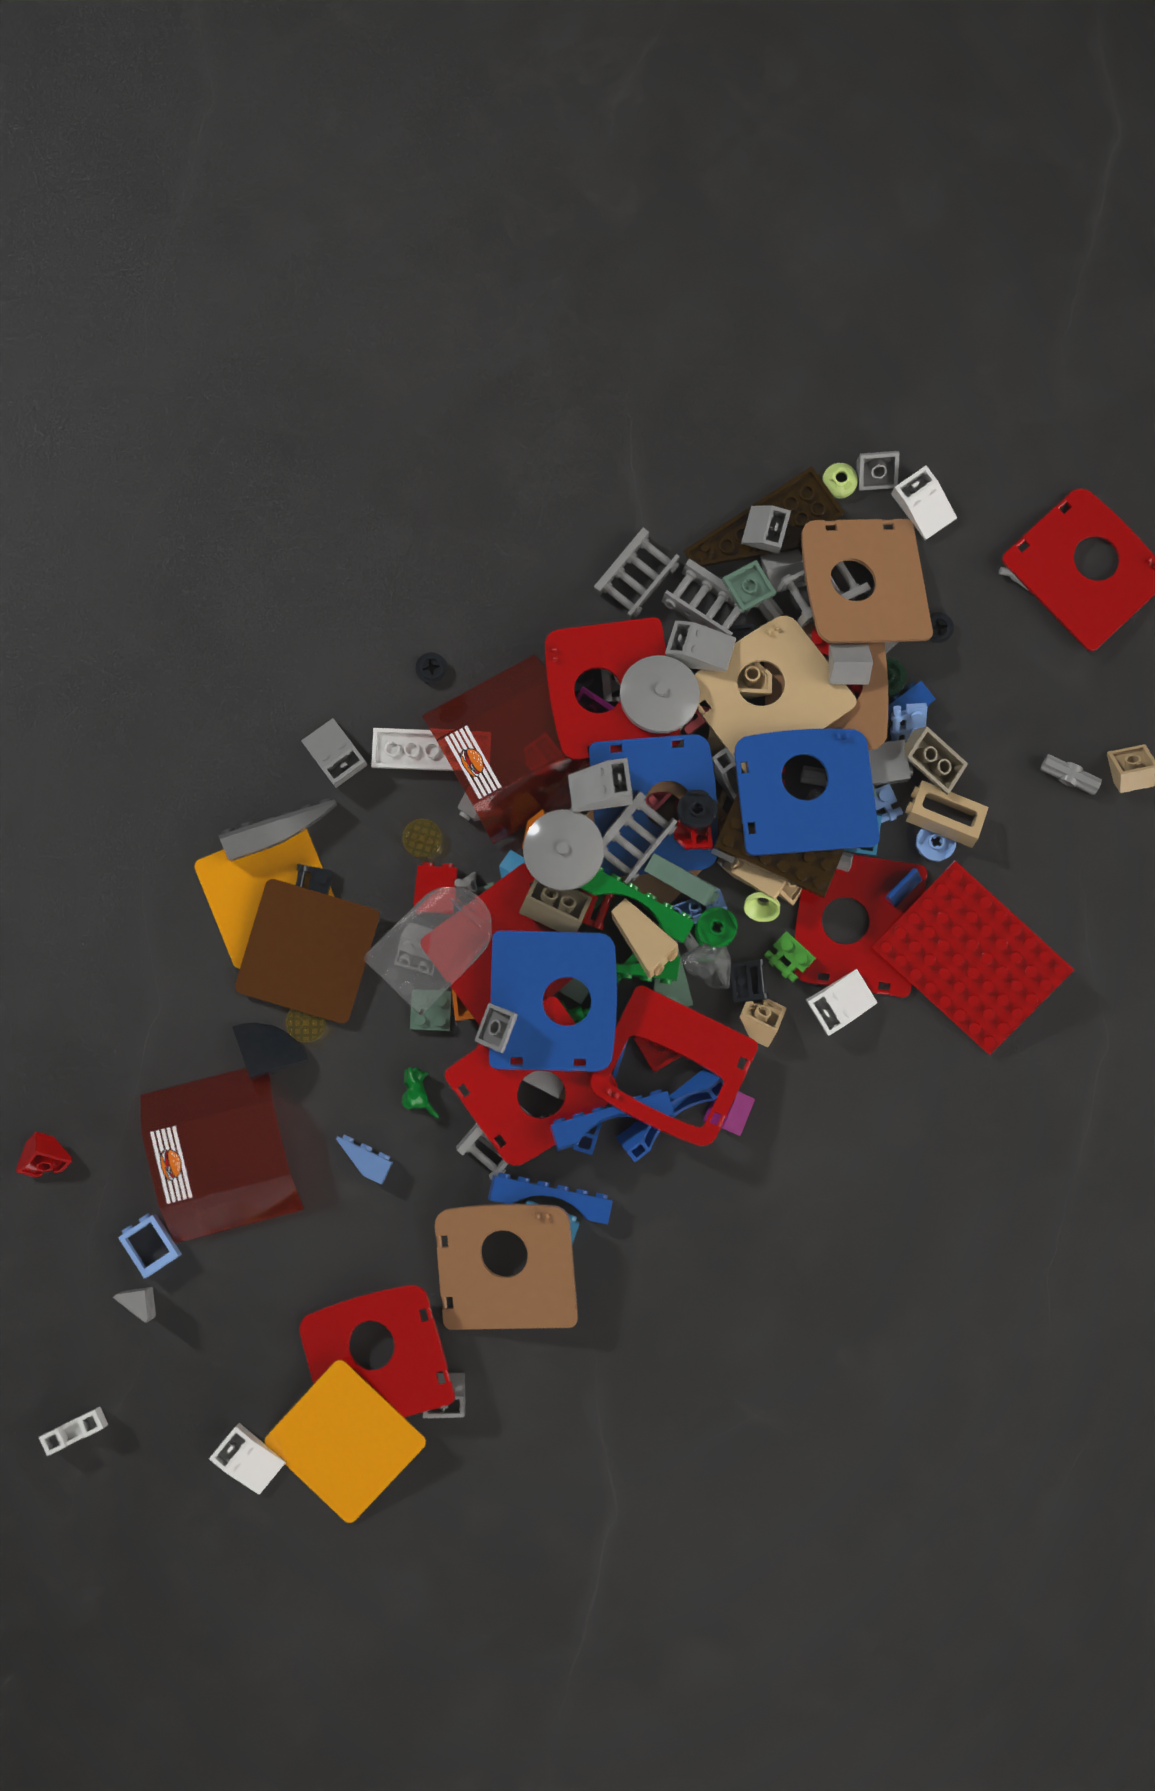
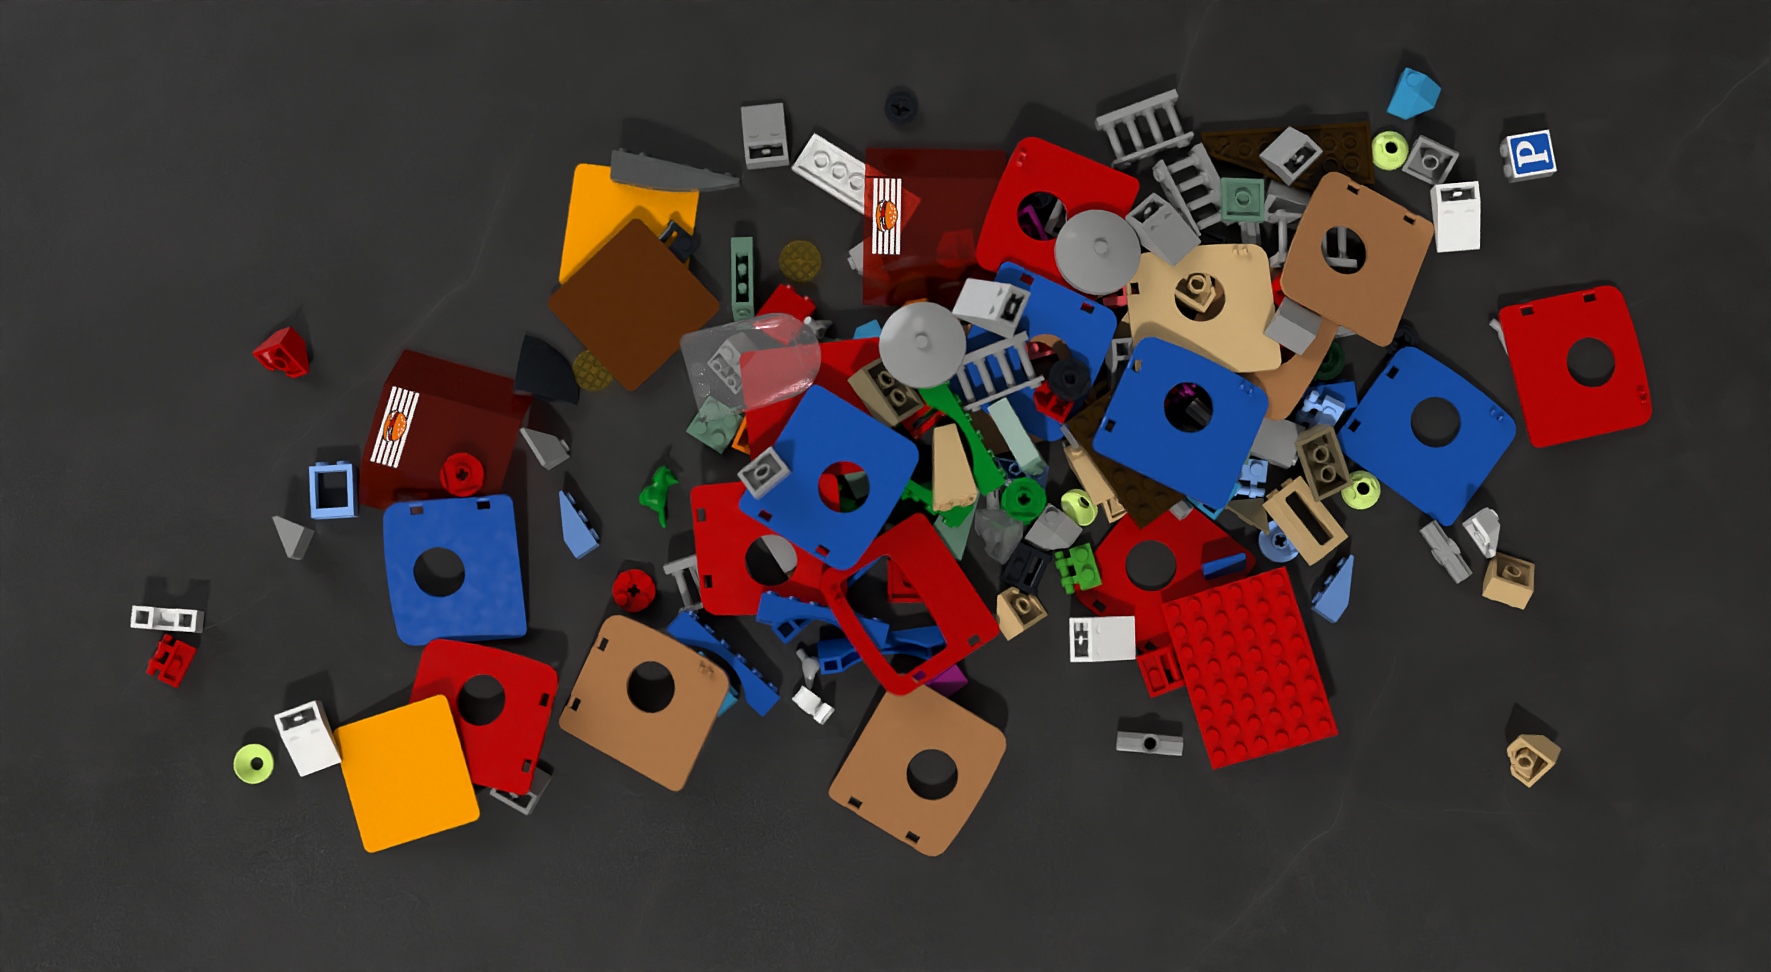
camera: 35 degrees right, 0 degrees up
(102, 1462) = (177, 663): none -> red plate
(207, 1514) = (243, 762): none -> yellowish green piece
(238, 1171) = (452, 468): none -> red plate
(301, 1214) = (486, 540): none -> blue door
(305, 1108) = (546, 447): none -> light grey slope
(385, 880) = (743, 278): none -> sand green slope
(432, 1179) = (627, 580): none -> red plate
(621, 1161) = (810, 666): none -> light grey animal
(641, 1190) = (813, 705): none -> white leg
(721, 1181) = (880, 761): none -> medium nougat door
(751, 938) = (1052, 530): none -> light grey slope
(791, 768) = (1188, 389): none -> magenta hair
(833, 425) = (1413, 95): none -> dark azure slope
(898, 1005) = (1153, 671): none -> red plate
(901, 832) = (1251, 512): none -> dark tan tile
(939, 1059) = (1163, 744): none -> light grey piece
(952, 423) = (1528, 156): none -> piece
(973, 773) = (1357, 500): none -> yellowish green piece
(1005, 859) = (1335, 596): none -> medium blue slope
(1023, 723) = (1428, 477): none -> blue door
(1091, 740) = (1484, 530): none -> white slope

